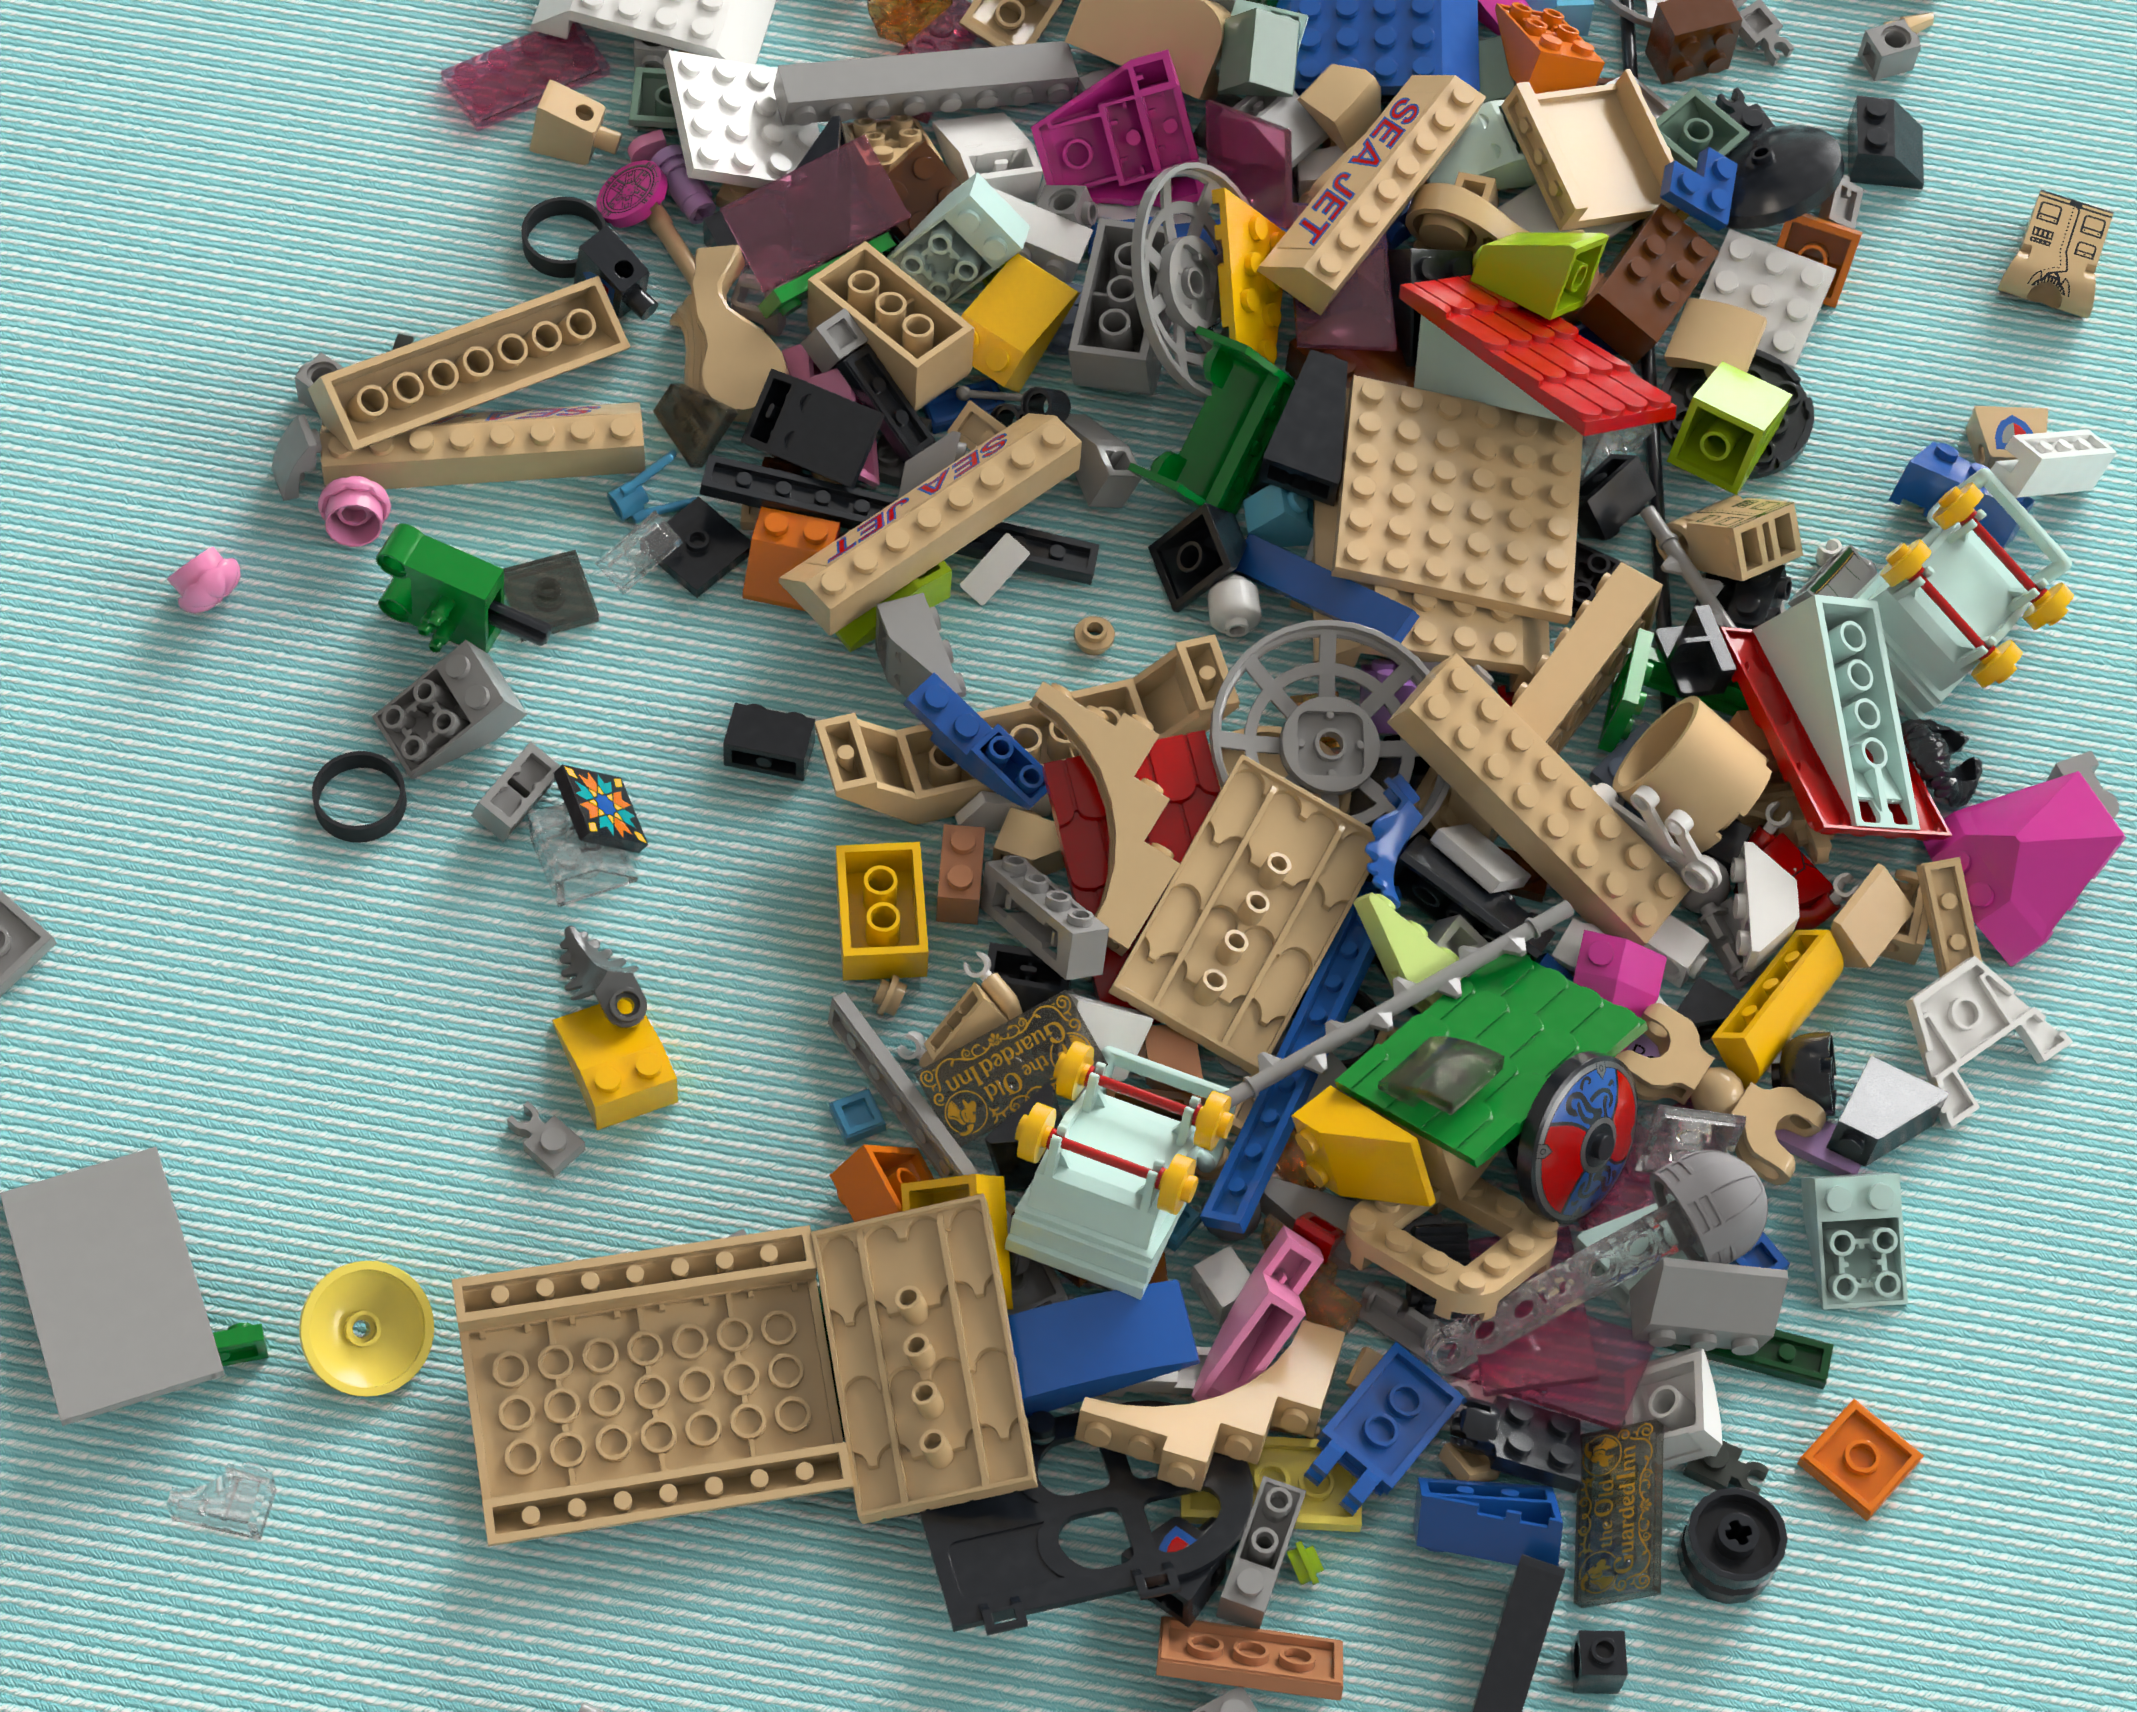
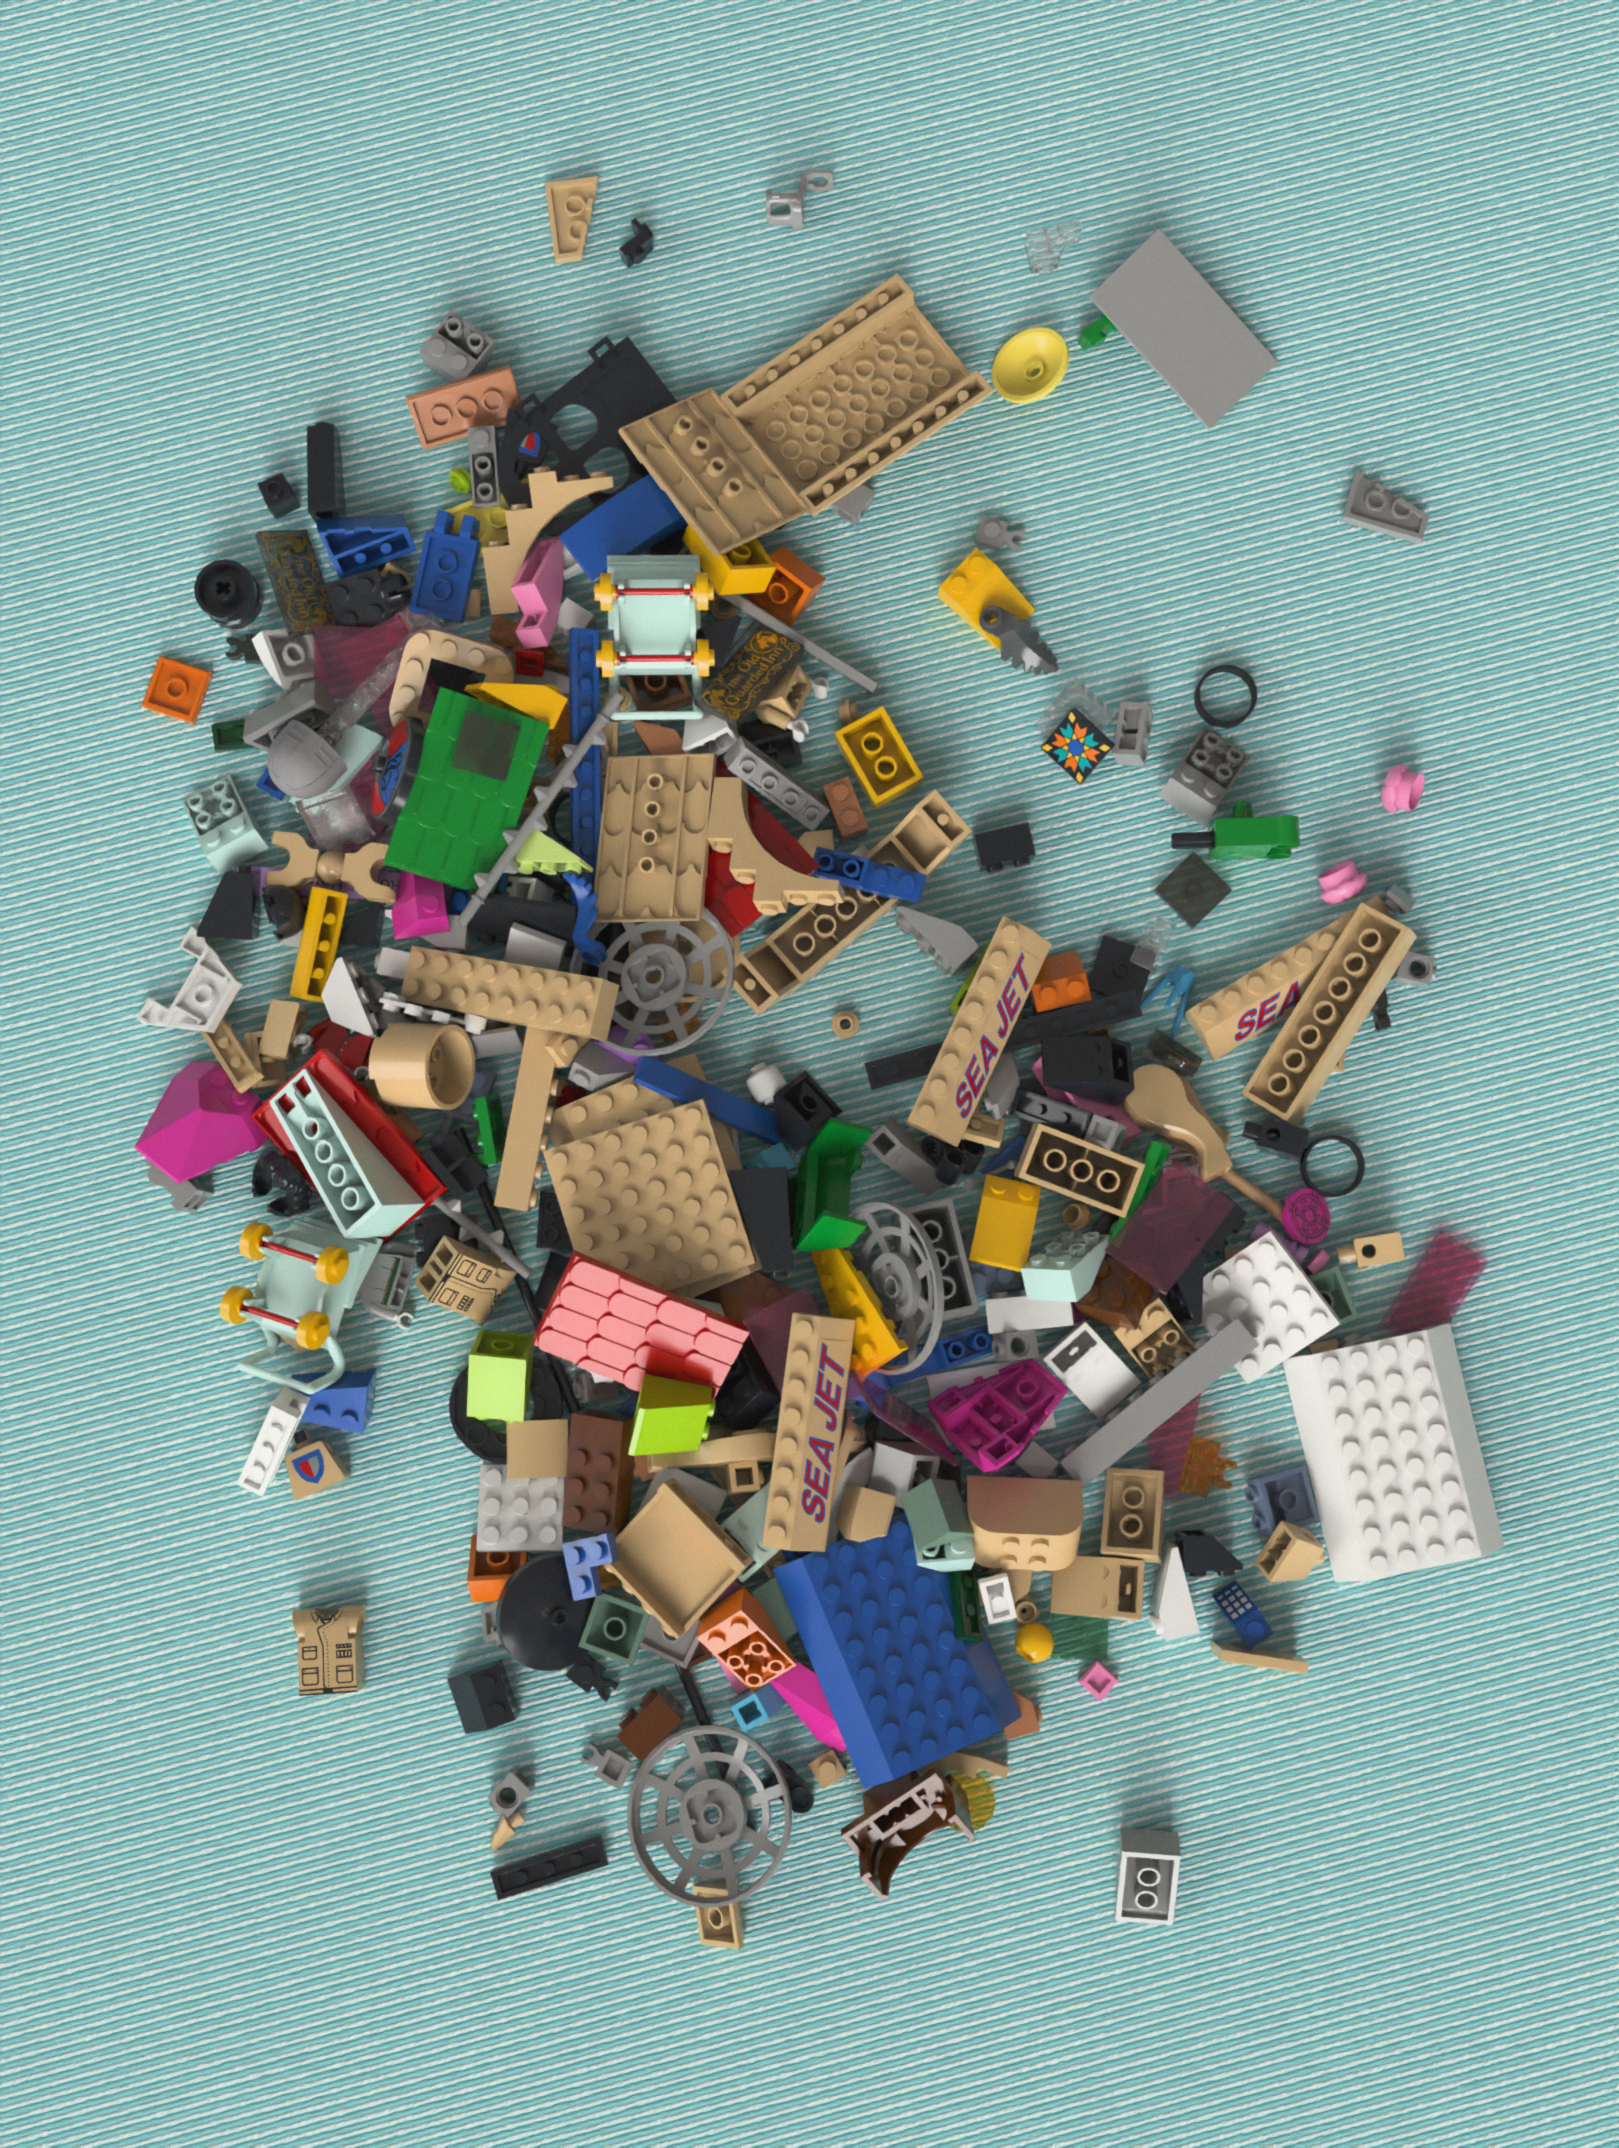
camera: 165 degrees right, 25 degrees up
(857, 1116) = (830, 632): dark azure tile -> none
(994, 569) = (927, 1036): white sticker -> none

